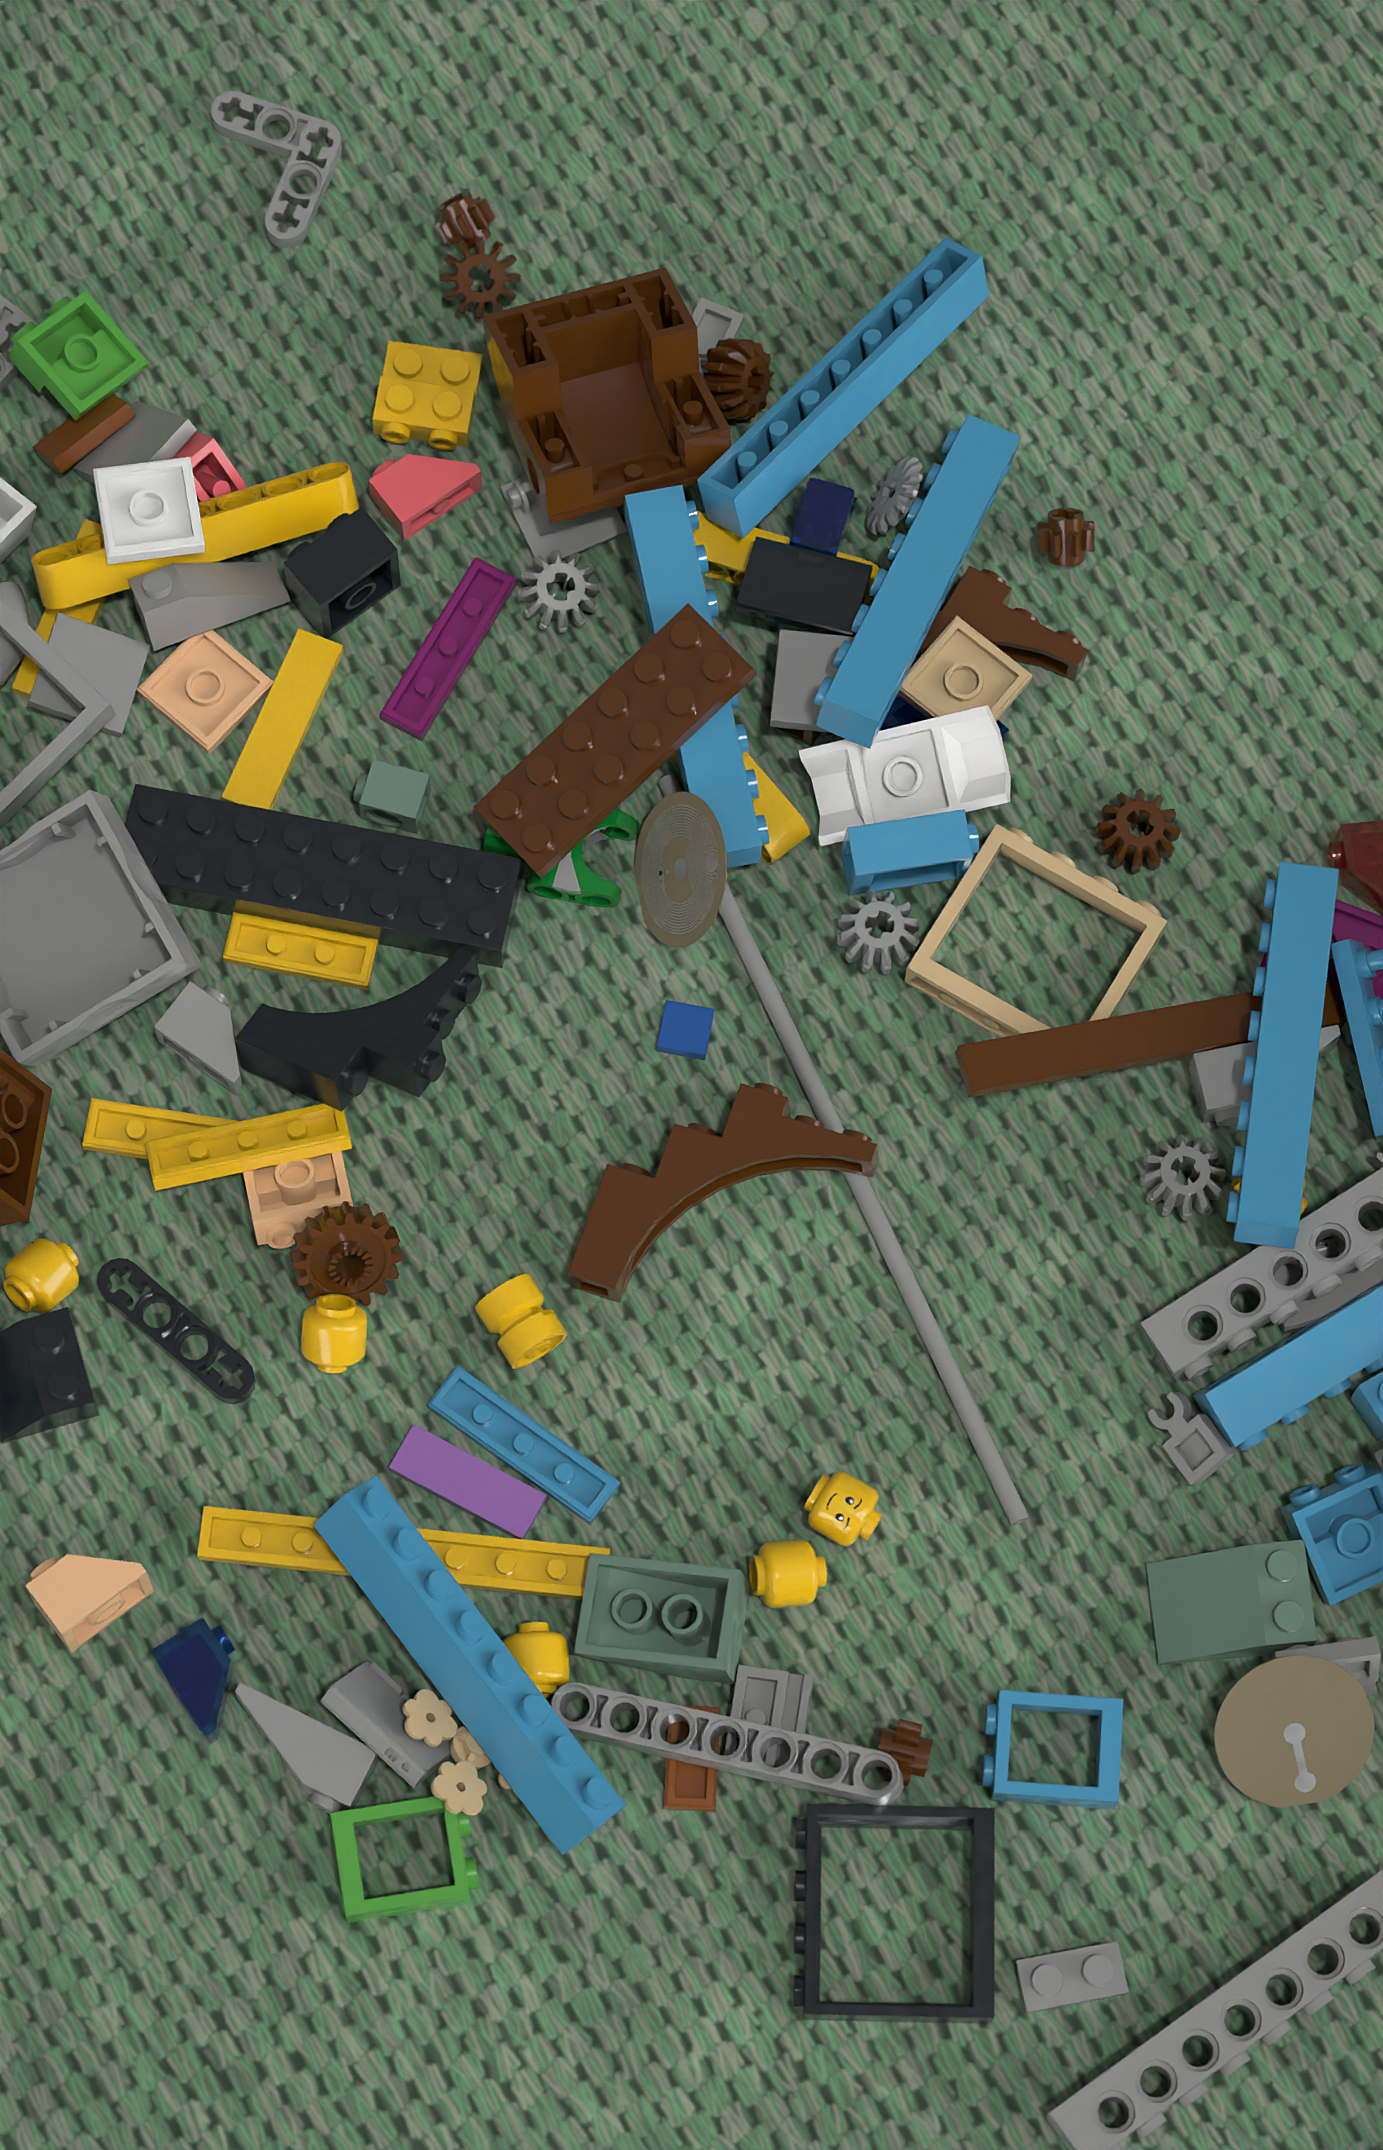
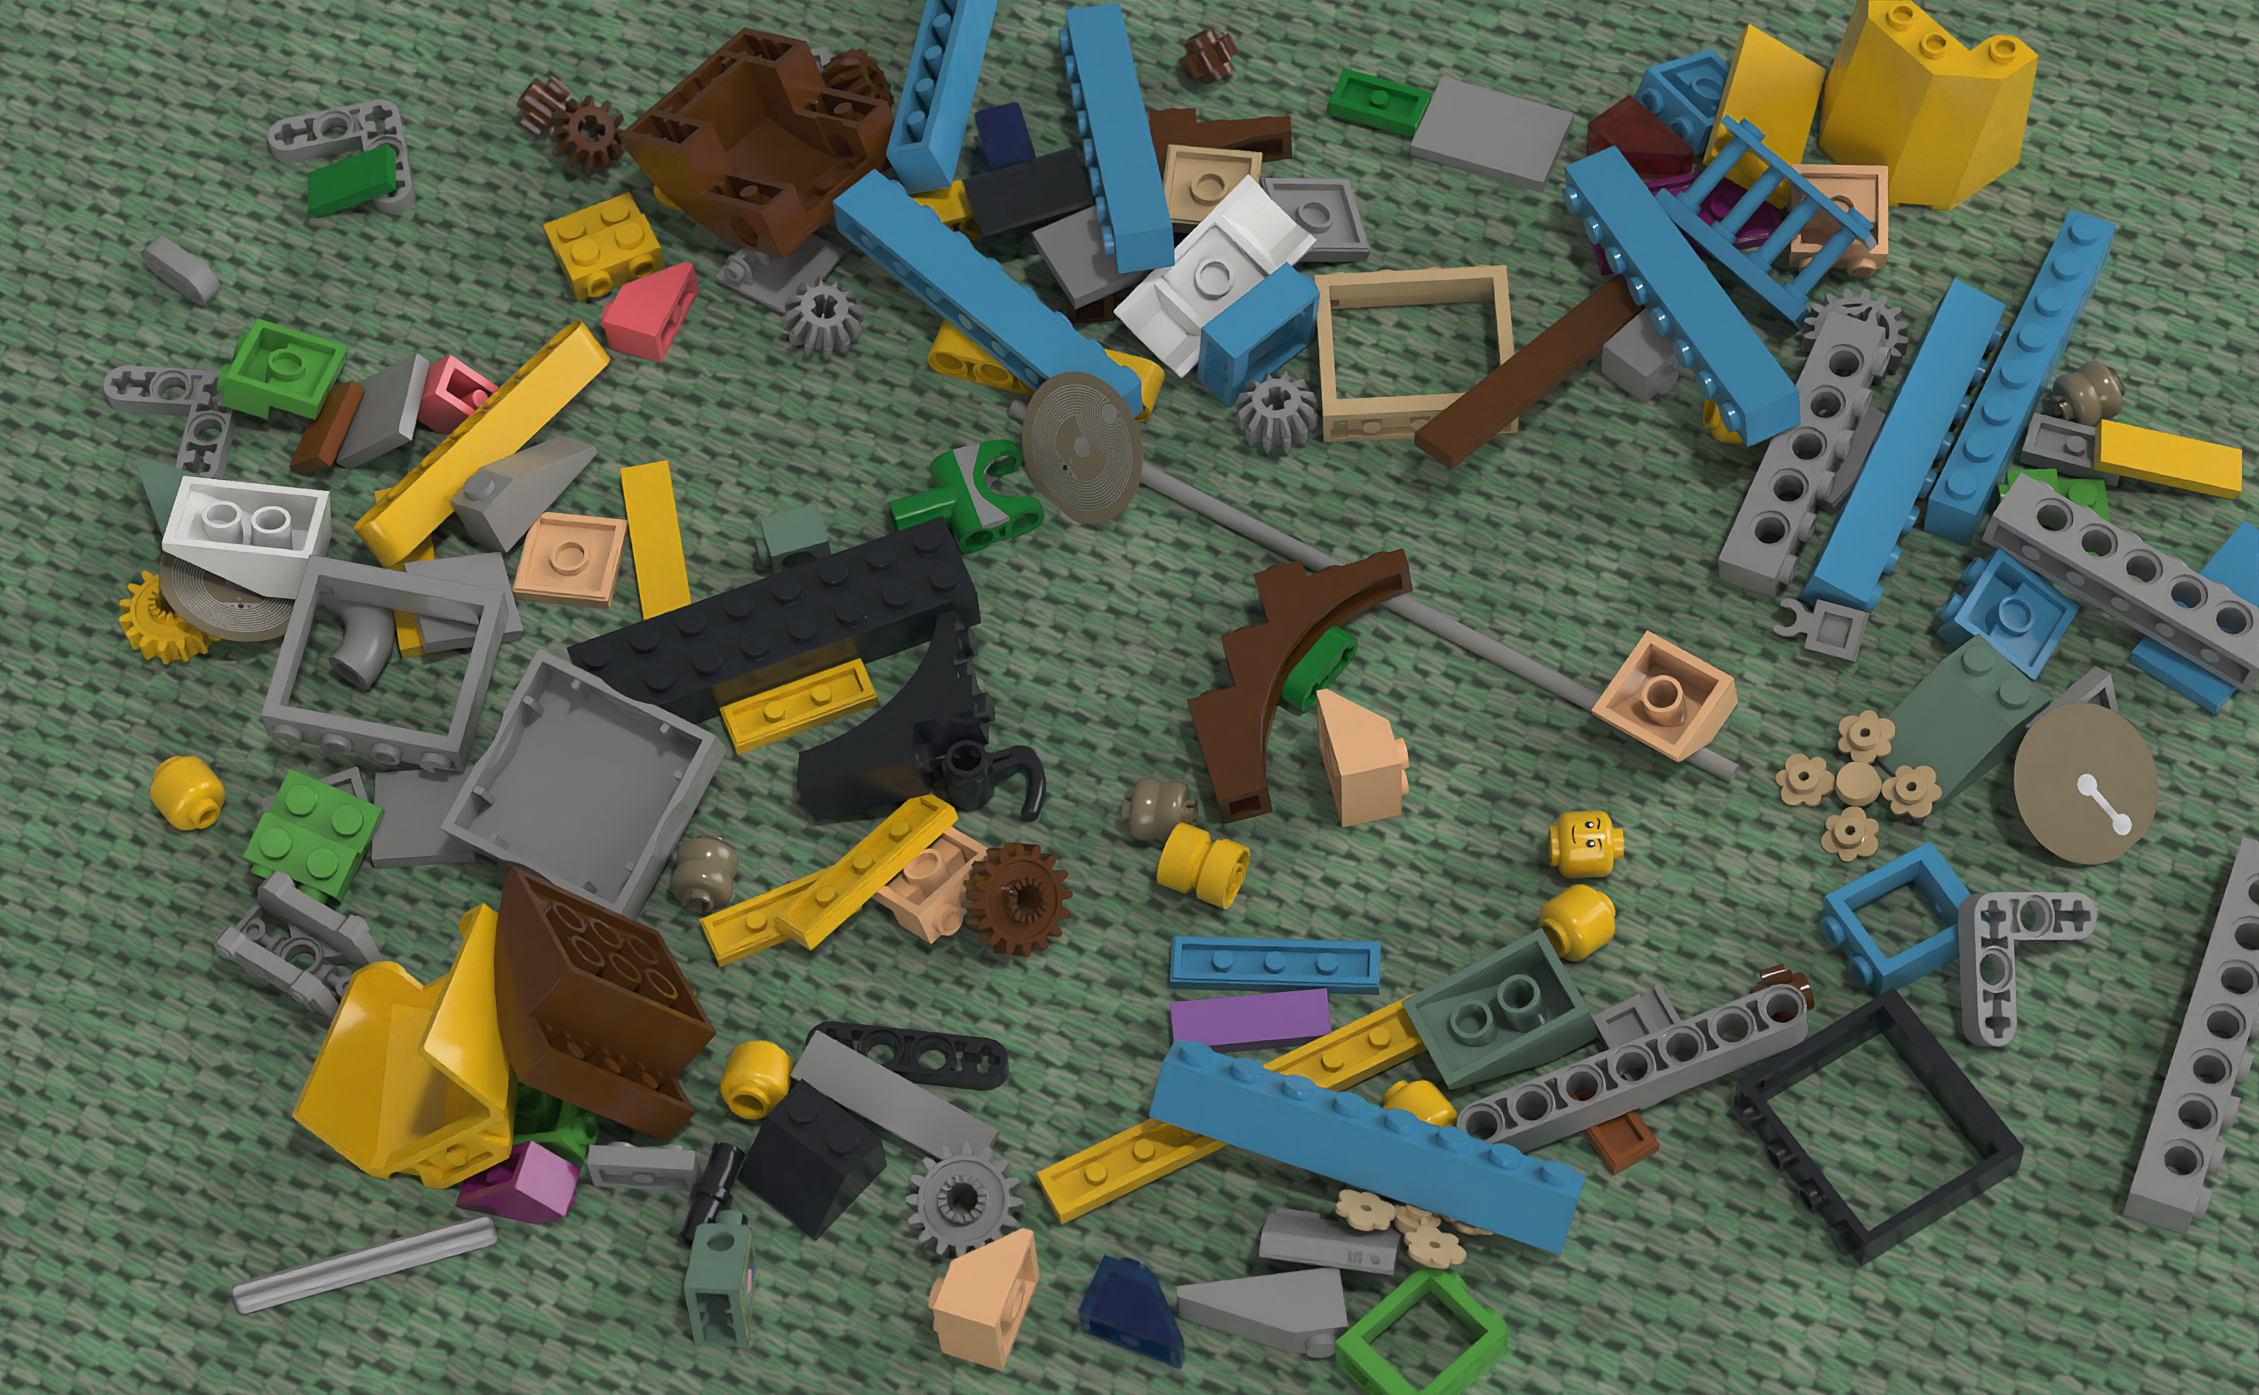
camera: 25 degrees left, 15 degrees down
(59, 193) = (181, 270): none -> light grey beam
(104, 1489) = (946, 1182): none -> light grey gear
(119, 1061) = (704, 873): none -> dark tan piece
(134, 1370) = (889, 1099): none -> light grey tile
(148, 510) = (433, 432): white tile -> none
(202, 1033) = (766, 812): light grey slope -> none
(254, 195) = (352, 181): none -> green tile
(334, 1333) = (1049, 969): yellow head -> none
(342, 572) = (630, 398): black brick -> none
(389, 1098) = (972, 773): none -> black piece
(448, 649) = (758, 417): magenta tile -> none
(521, 1245) = (1157, 808): none -> dark tan piece
(615, 740) = (958, 379): reddish brown plate -> none
(685, 1030) = (1171, 577): blue tile -> none
(707, 1316) = (1360, 760): none -> light nougat slope
(744, 1200) = (1319, 667): none -> green beam
(895, 495) = (1049, 114): light grey gear -> none
(999, 1425) = (1667, 698): none -> light nougat slope
(1047, 759) = (1325, 211): none -> light grey tile
(1071, 1977) = (2056, 1090): light grey plate -> none
(1112, 1602) = (1858, 786): none -> tan plant
(1119, 1819) = (2004, 929): none -> light grey beam
(1147, 847) = (1429, 225): reddish brown gear -> none
(1166, 1166) = (1663, 444): light grey gear -> none
(1183, 678) = (1378, 102): none -> green plate
(1262, 771) = (1492, 134): none -> light grey tile

